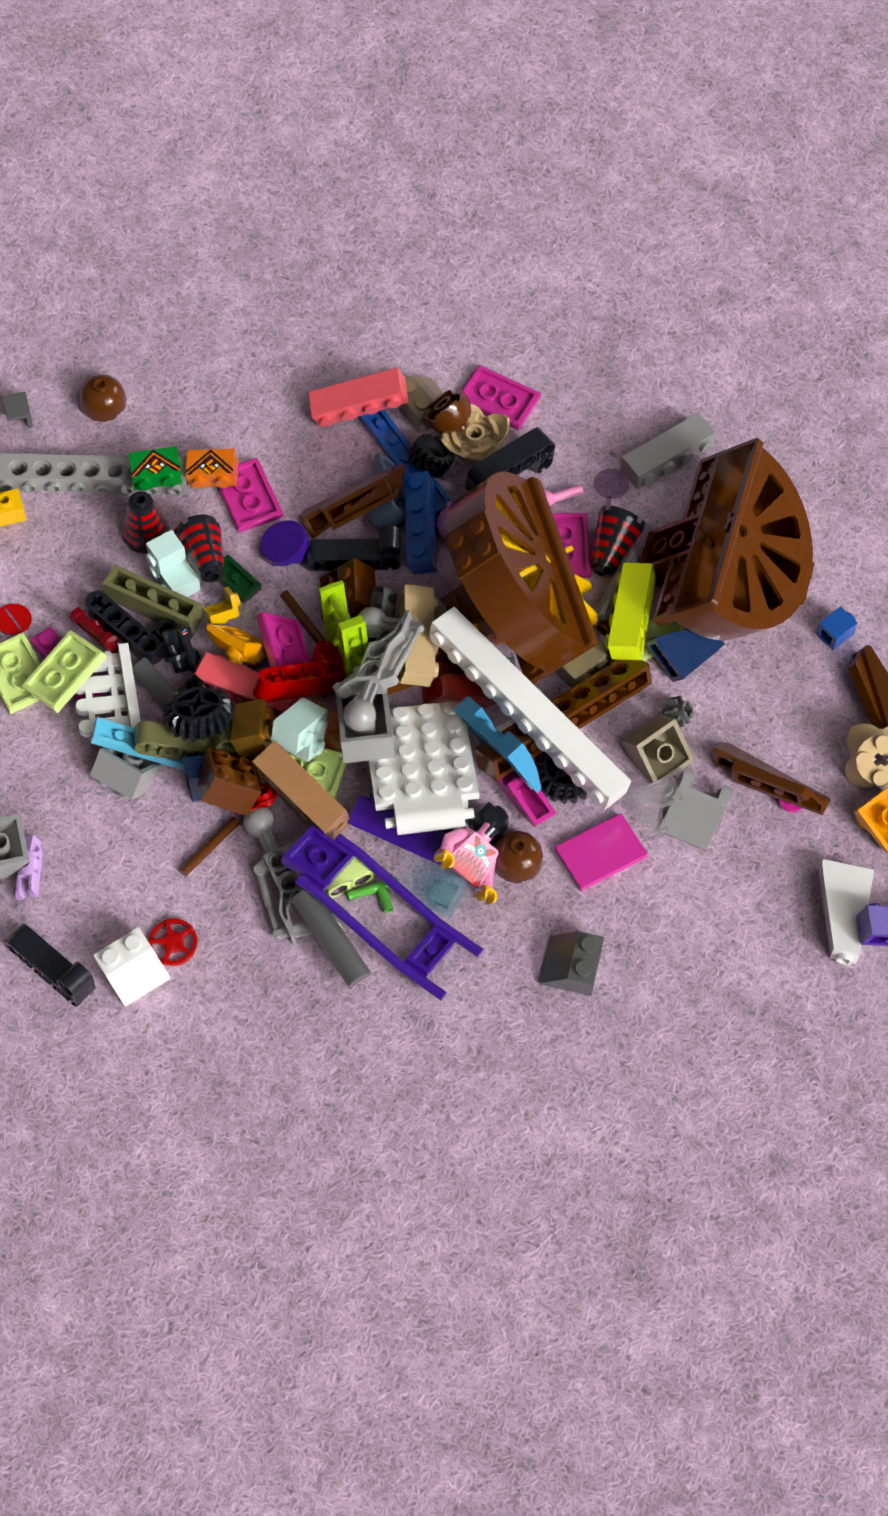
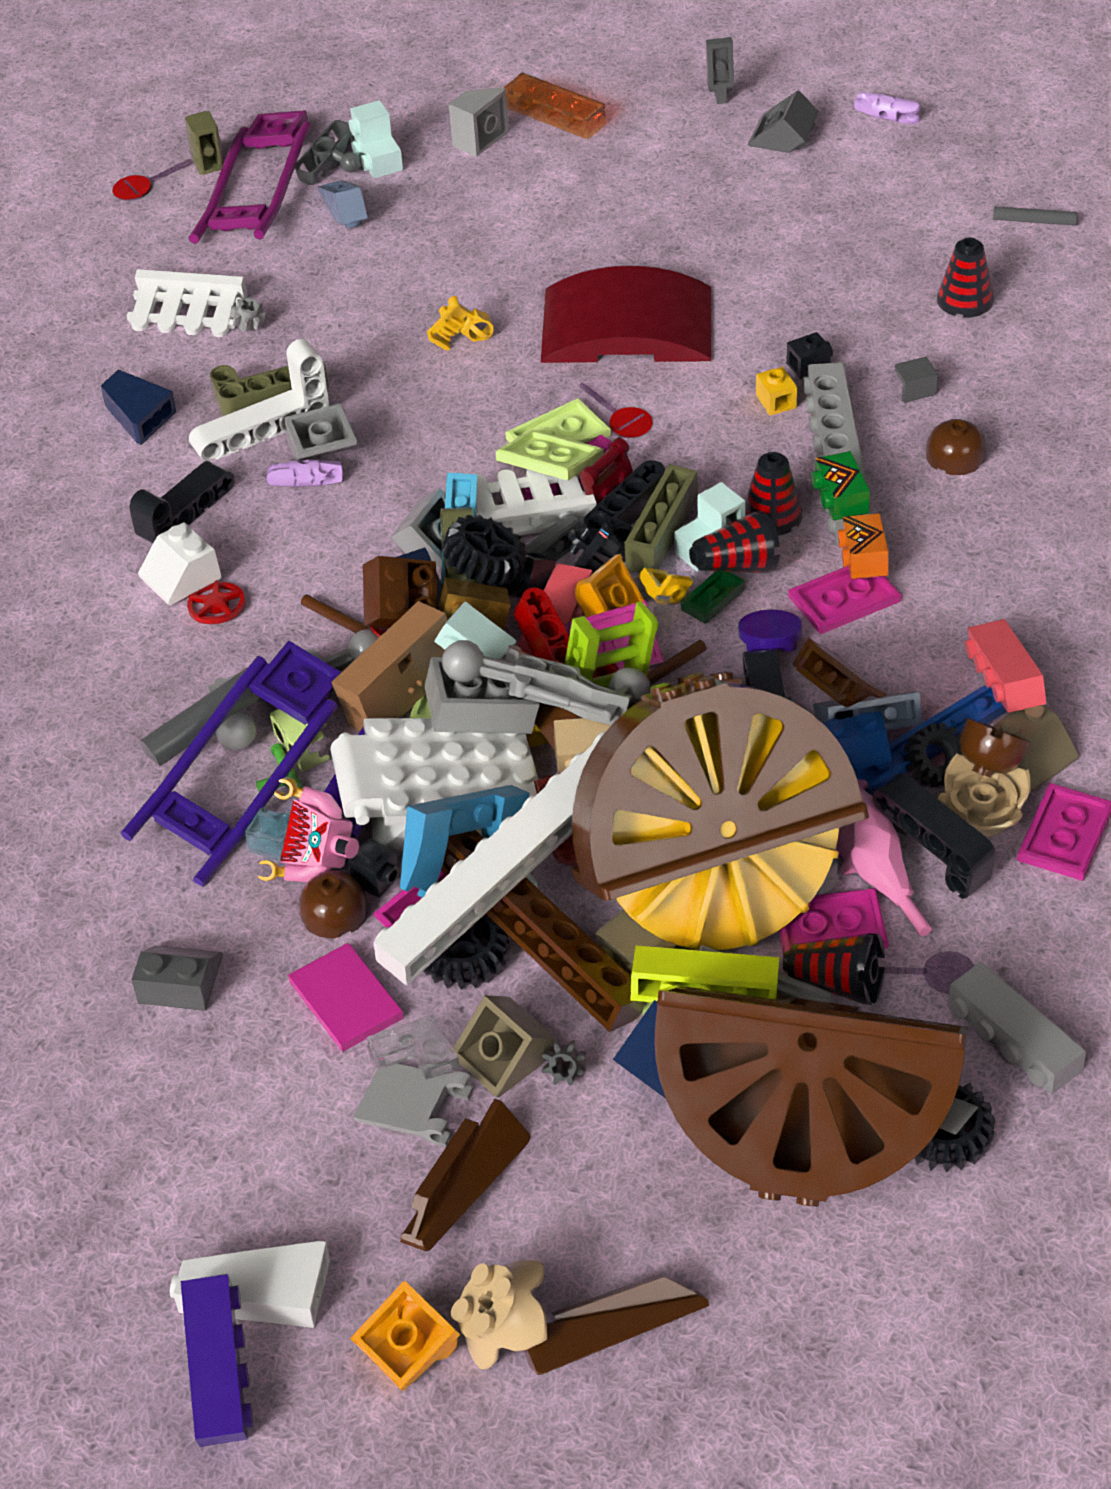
camera: 90 degrees right, 15 degrees down
(837, 628) = (735, 1260): blue brick -> none

